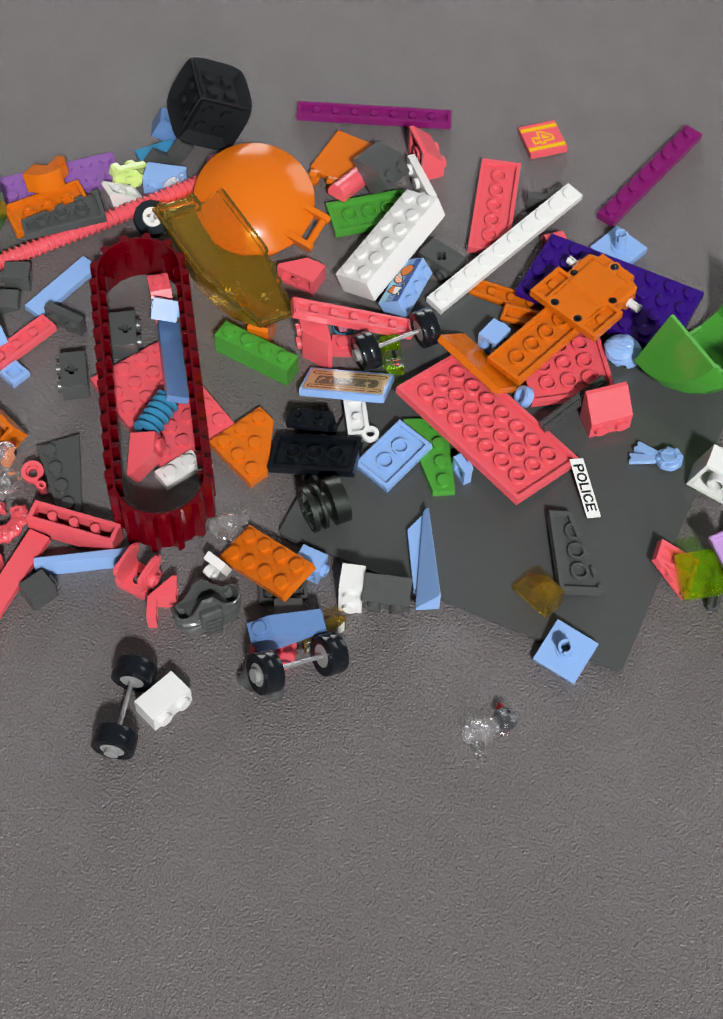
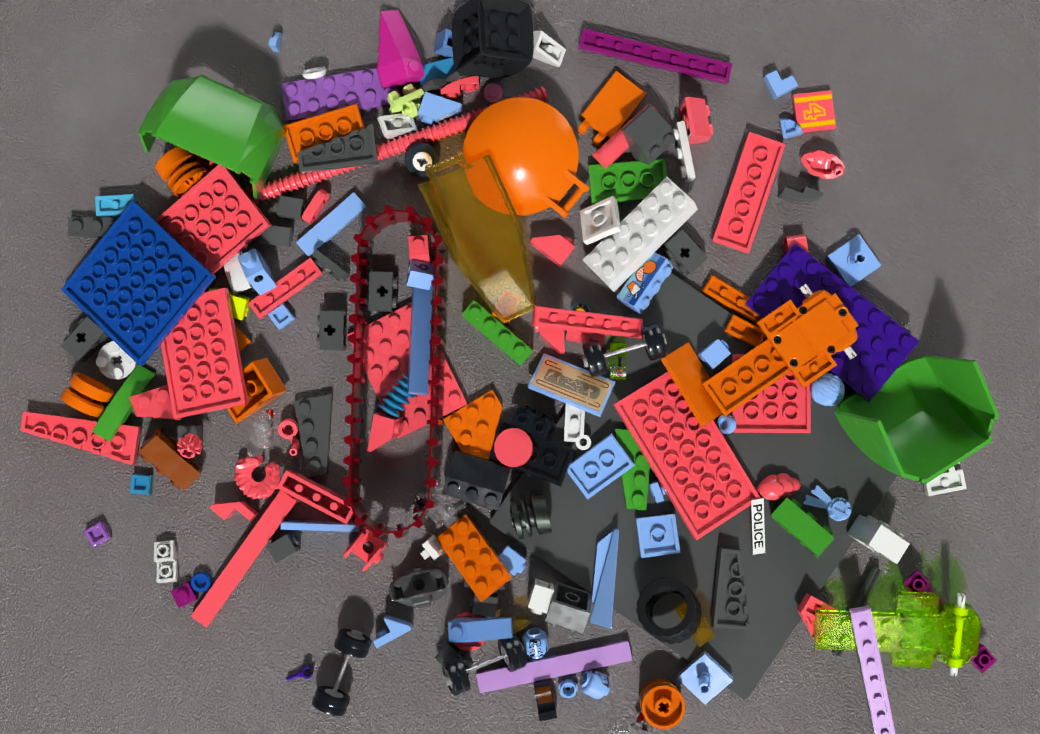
camera: 10 degrees right, 30 degrees up
(23, 166) = (314, 73): none -> white piece
(43, 271) = (315, 206): none -> coral beam
(46, 177) = (327, 102): orange brick -> none
(74, 727) = (300, 674): none -> dark purple hand
(115, 140) = (398, 58): none -> dark pink wedge
(163, 596) = (387, 570): coral slope -> none
(163, 701) = (374, 666): white brick -> none
(177, 470) = (414, 443): white hinge -> none
(185, 157) = (453, 90): none -> coral slope
(185, 656) = (396, 628): none -> light blue slope
(256, 488) = (476, 480): none -> black slope
(264, 121) = (547, 49): none -> white slope
(293, 448) = (513, 447): none -> coral tile
(346, 240) = (600, 220): none -> white plate
(358, 645) = (535, 643): none -> light blue head
(379, 707) = (545, 700): none -> leg
(382, 672) = (555, 666): none -> lavender tile
(405, 686) = (568, 693): none -> light blue plate
(436, 679) = (595, 684): none -> light blue head
(474, 512) = (657, 535): none -> light blue plate
(502, 124) = (777, 86): none -> light blue piece
(503, 248) = (748, 250): white plate -> none
(508, 586) = (655, 591): none -> black tyre
(521, 684) = (673, 706): none -> orange wheel
(522, 153) = (790, 128): none -> light blue tile
(562, 172) = (823, 164): none -> coral arm
(570, 405) = (766, 444): dark grey axle -> none
(597, 449) = (778, 487): none -> coral arm
(606, 409) = (796, 456): coral slope -> none
(637, 477) = (803, 526): none -> bright green wedge
(649, 176) = (907, 173): magenta plate -> none

